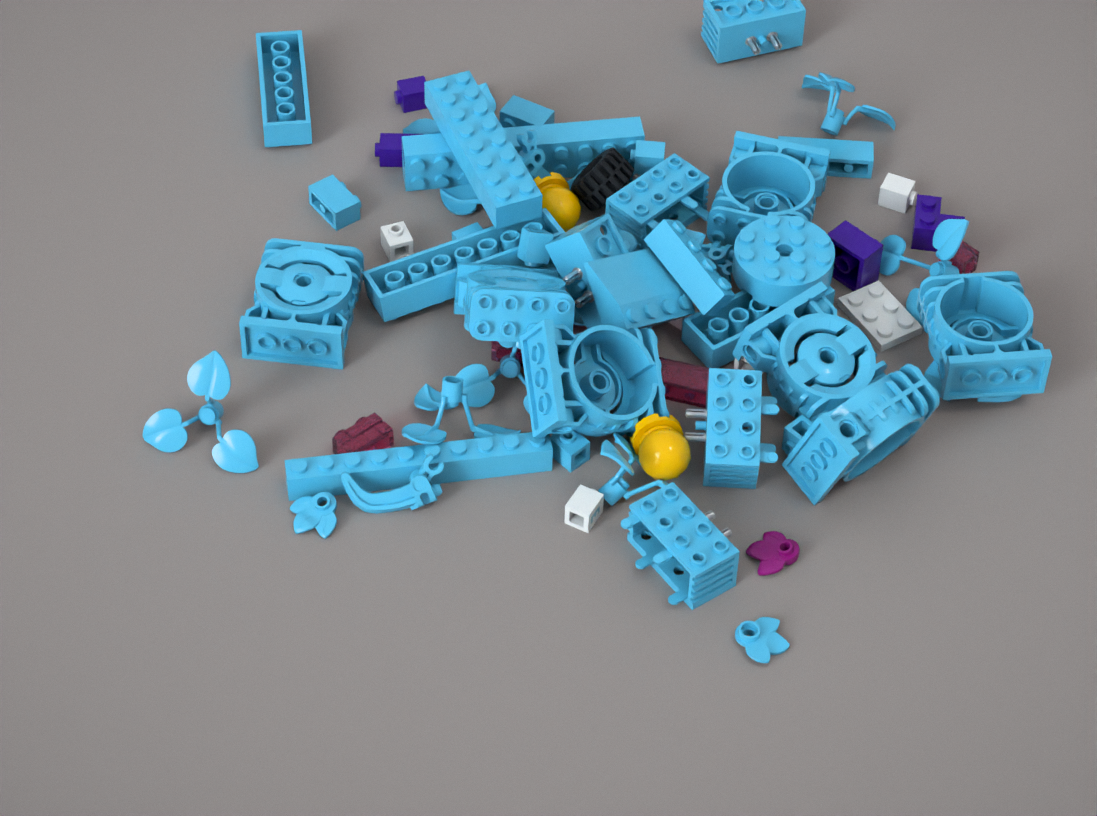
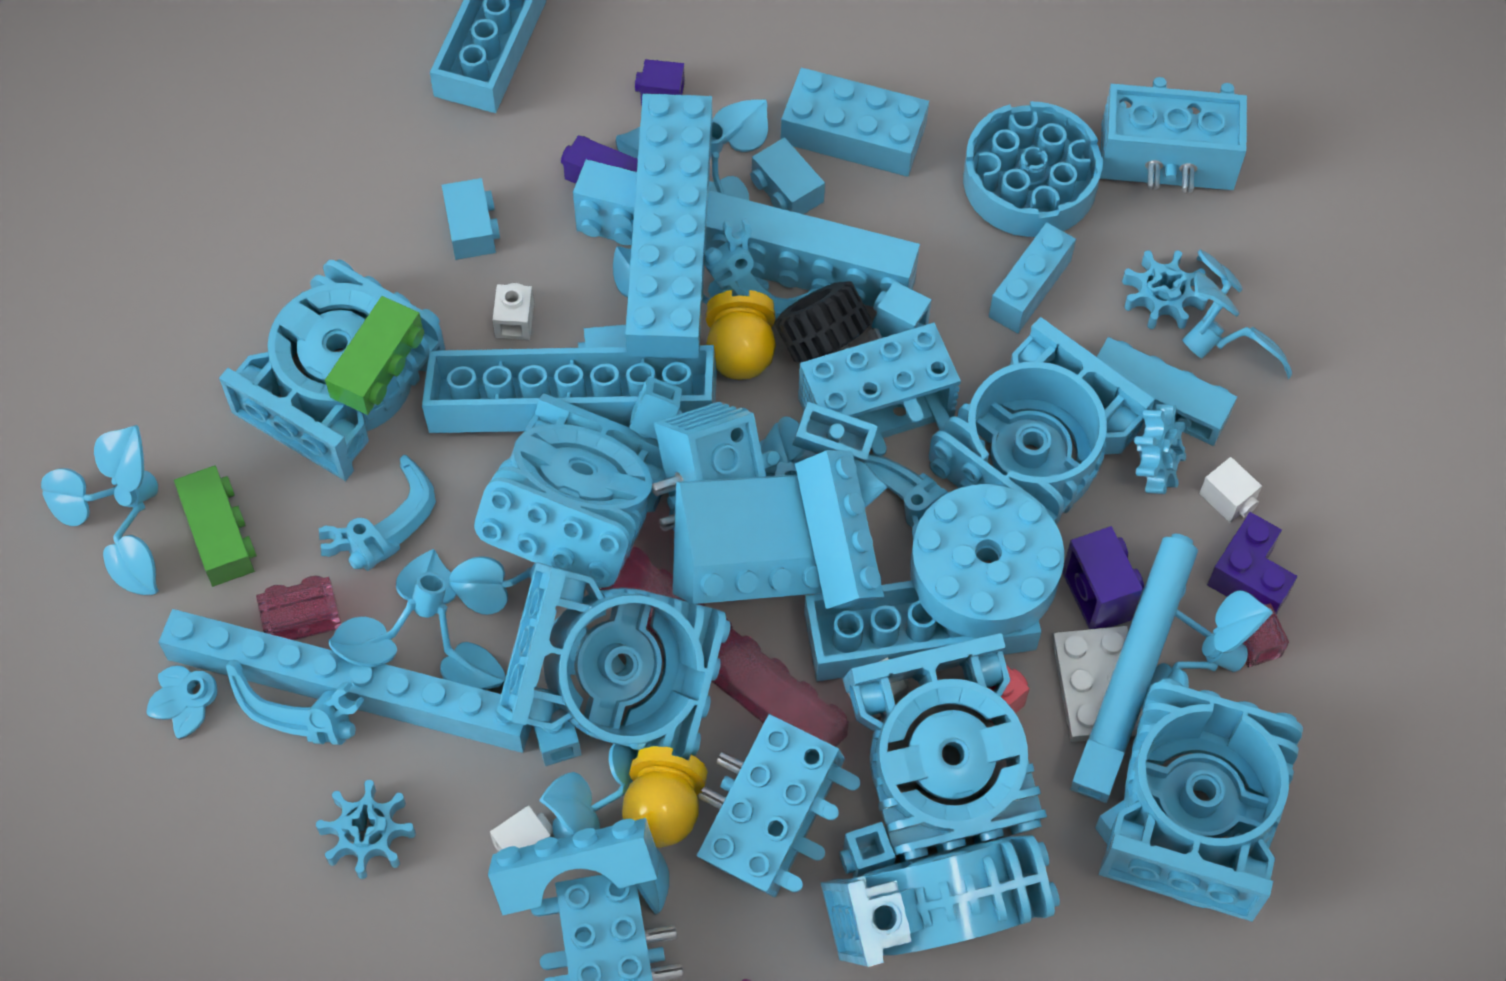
camera: 25 degrees right, 15 degrees up
(276, 415) = (216, 525): none -> bright green brick
(339, 274) = (375, 355): none -> bright green brick
(386, 390) = (378, 542): none -> medium azure piece
(482, 537) = (353, 821): none -> medium azure gear
(551, 76) = (854, 121): none -> medium azure brick
(611, 505) = (619, 852): none -> medium azure arch
(646, 217) = (831, 430): none -> medium azure brick
(676, 67) = (1032, 168): none -> medium azure brick
(711, 123) = (1032, 277): none -> medium azure brick
(794, 105) = (1163, 289): none -> medium azure gear
(845, 180) = (1160, 448): none -> medium azure gear
(908, 338) = (1135, 668): none -> medium azure brick

